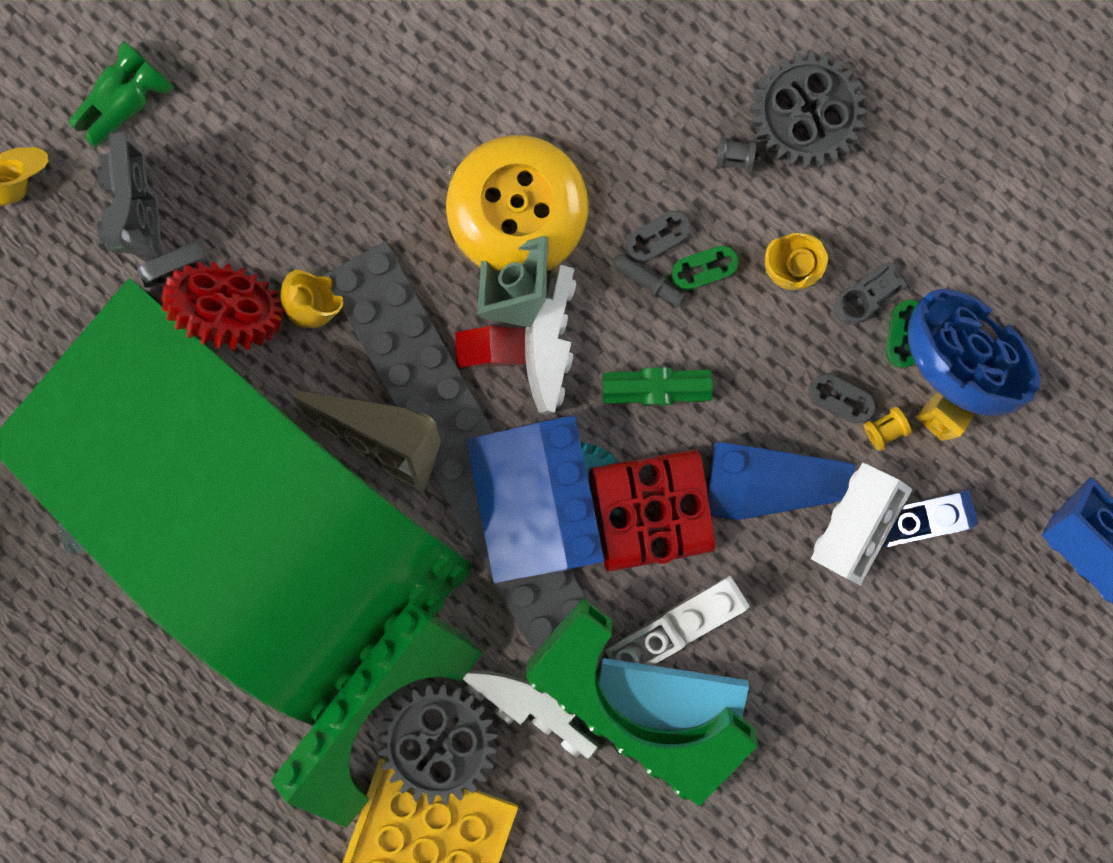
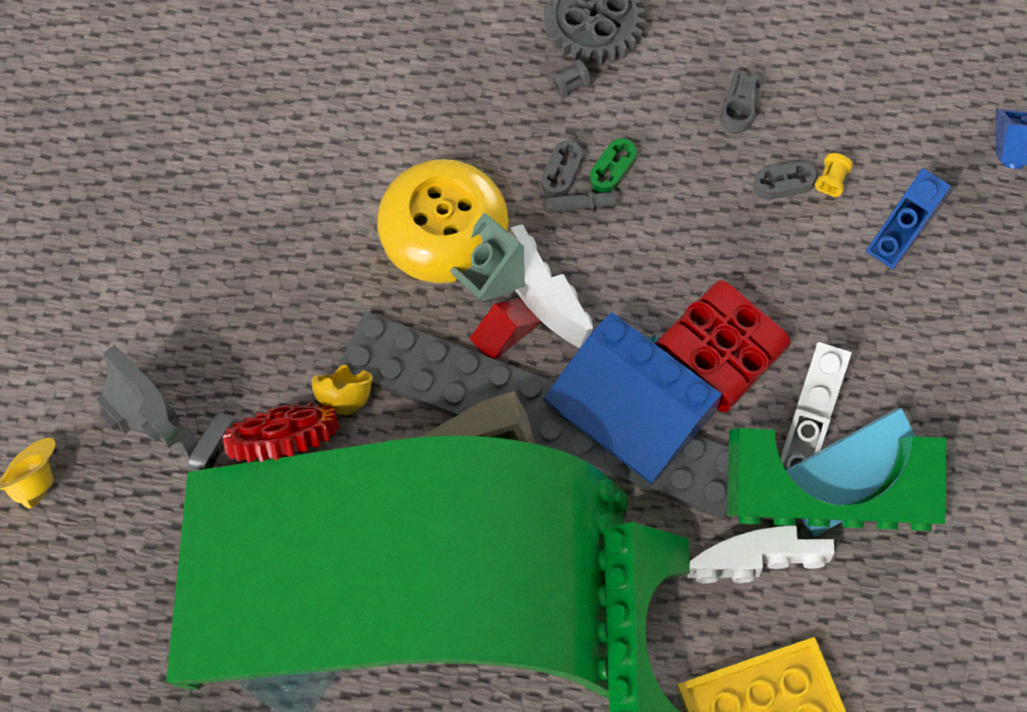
camera: 35 degrees left, 20 degrees down
(117, 98) = (75, 360): green piece -> none
(464, 762) = (746, 631): dark grey gear -> none
(657, 386) = (649, 264): green piece -> none
(764, 481) = (786, 267): blue wedge -> none
(795, 261) = (672, 113): yellow hair -> none
(861, 523) = (874, 244): white brick -> none
(896, 334) = (784, 113): green beam -> none
(944, 418) = (864, 133): yellow slope -> none
(965, 361) = (846, 86): blue brick -> none

